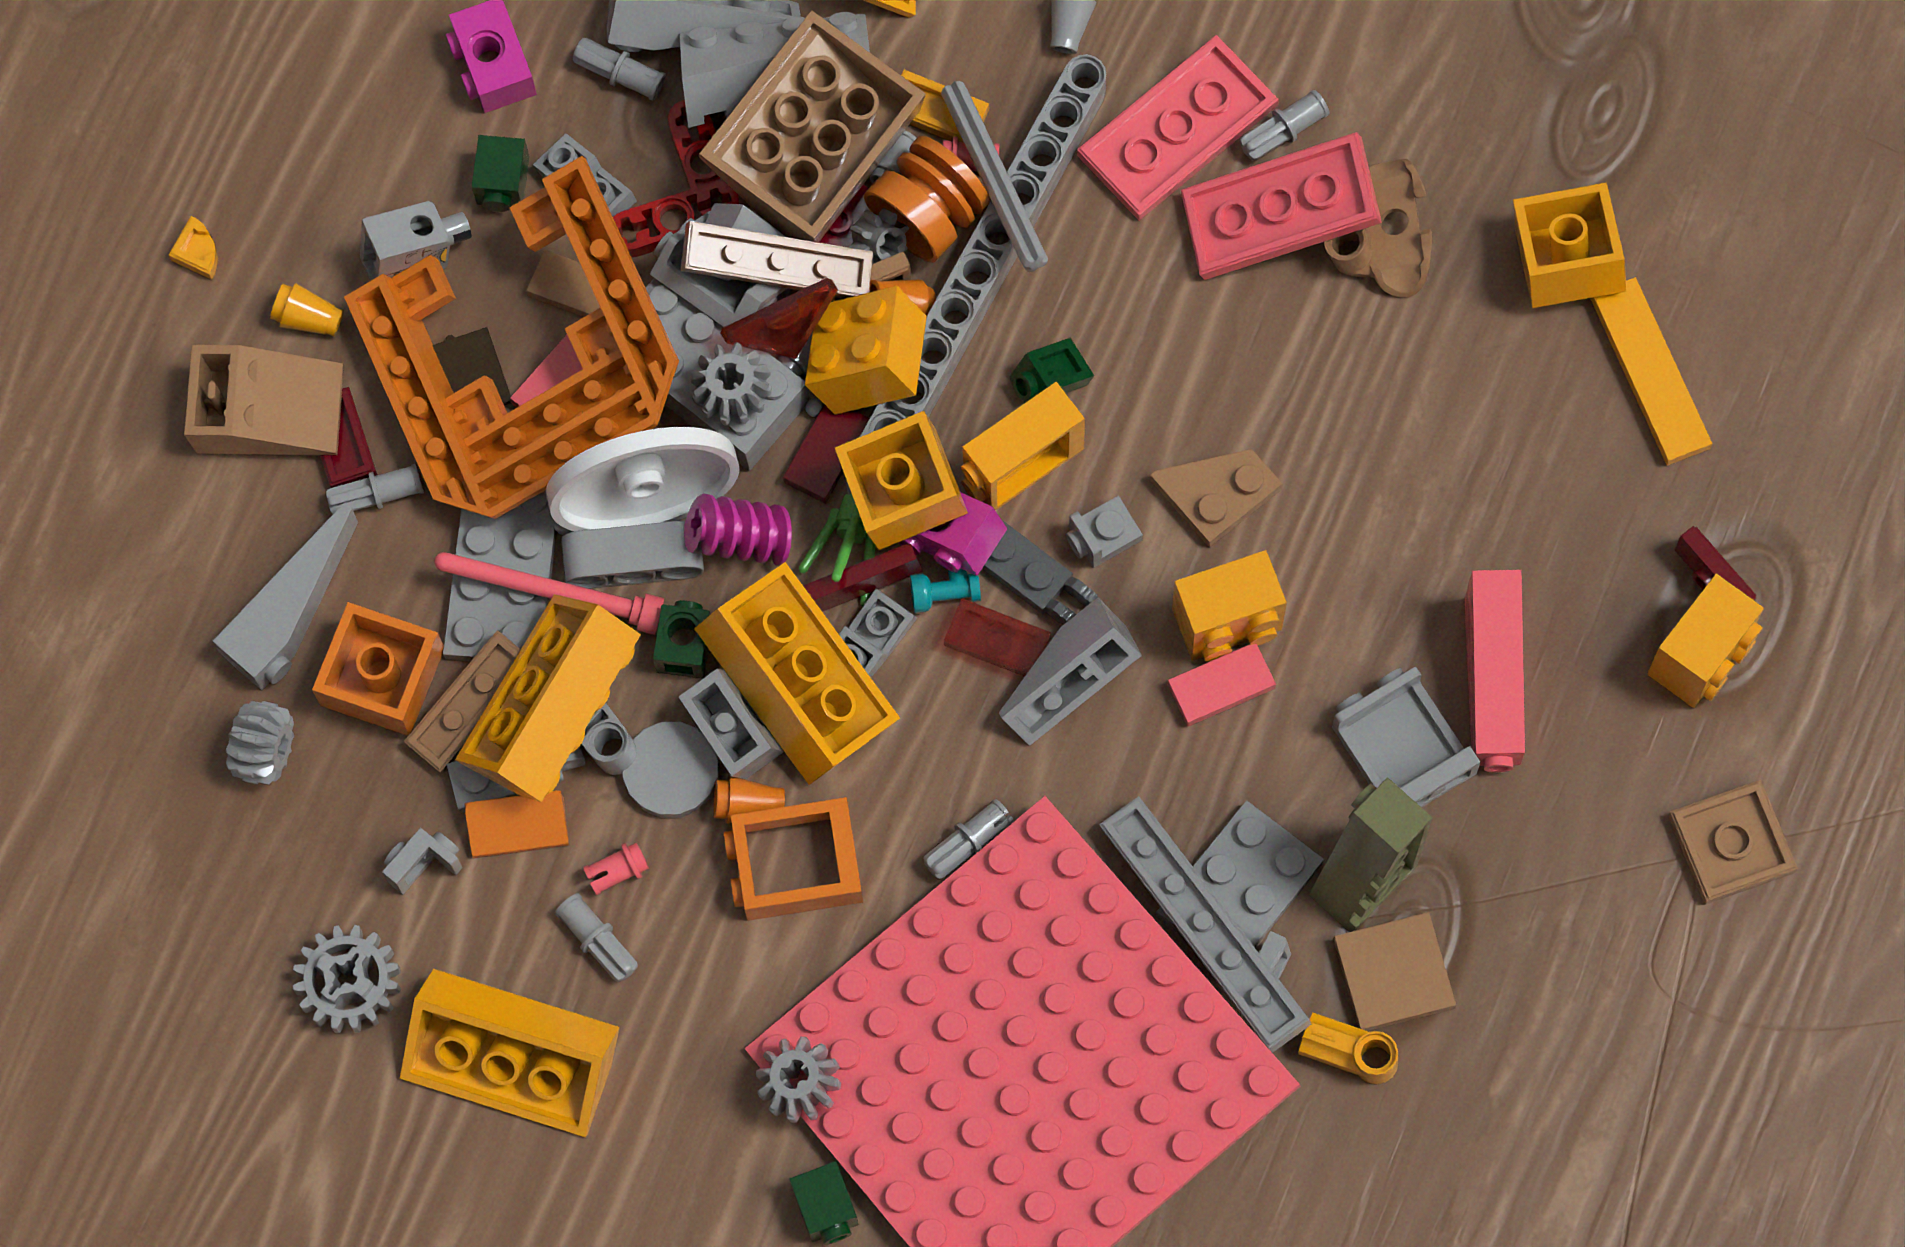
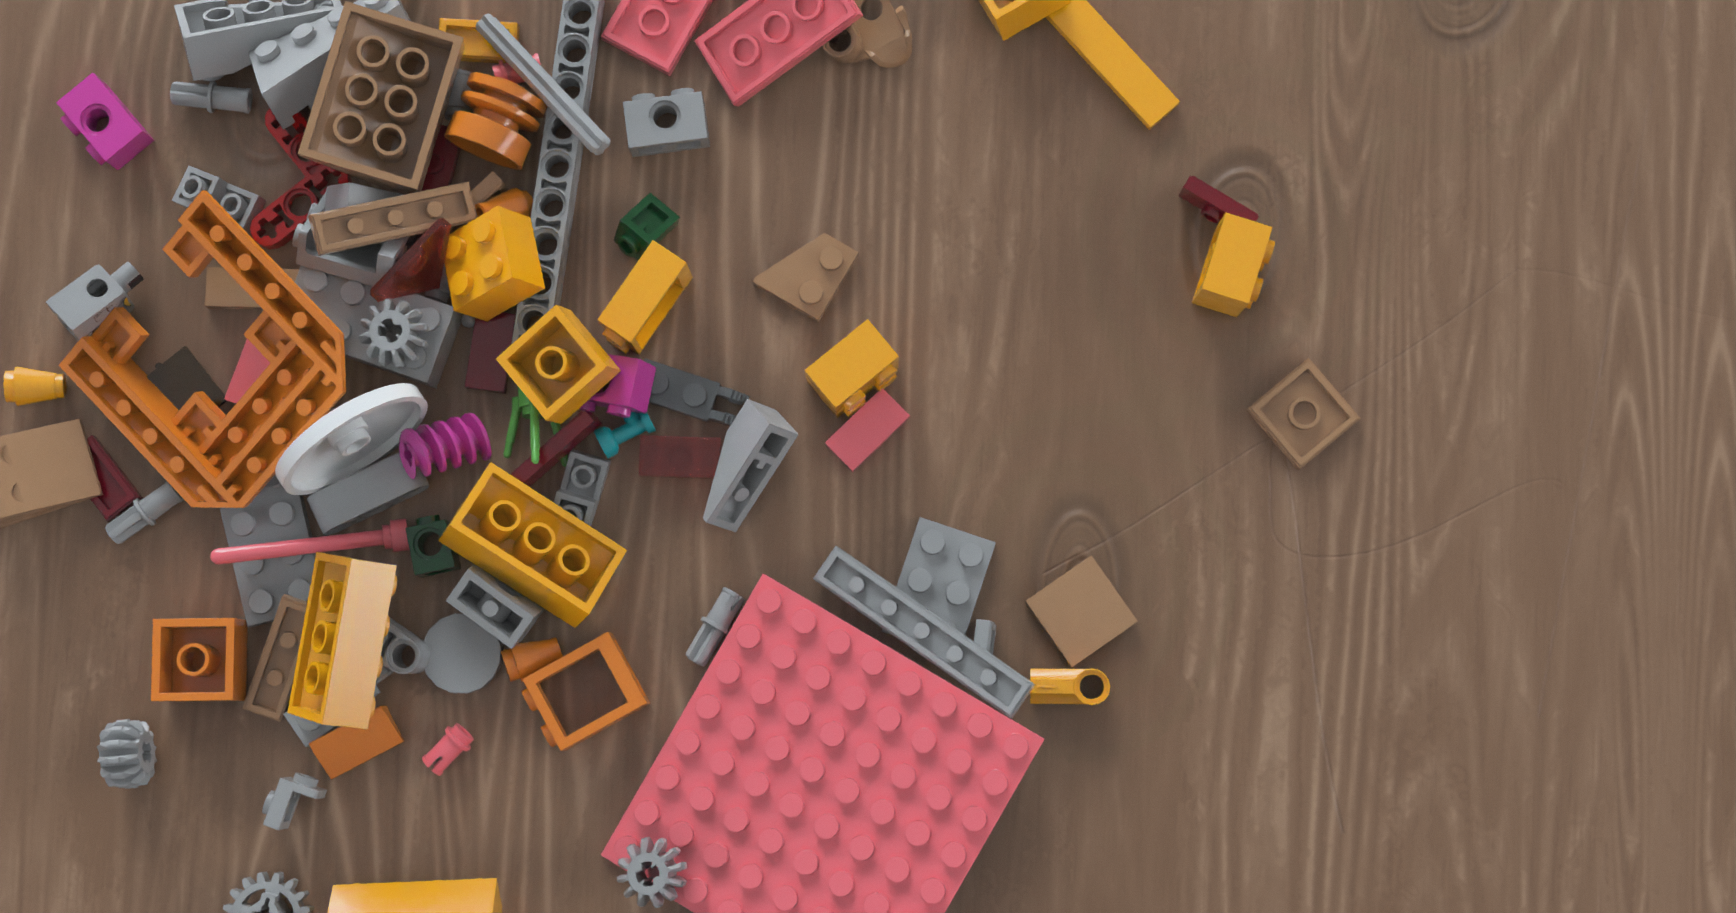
camera: 20 degrees left, 10 degrees up
(276, 620) = (105, 644): light grey slope -> none
(500, 172) = (147, 217): dark green brick -> none
(596, 938) = (453, 810): light grey axle -> none
(879, 234) = (469, 163): light grey gear -> none
(1103, 532) = (732, 340): light grey bracket -> none
(1135, 287) = (686, 134): none -> light grey brick
(1372, 854) = (1037, 535): olive wedge -> none
(1403, 738) = (1024, 428): light grey panel -> none
(1495, 667) = (1076, 345): coral slope -> none

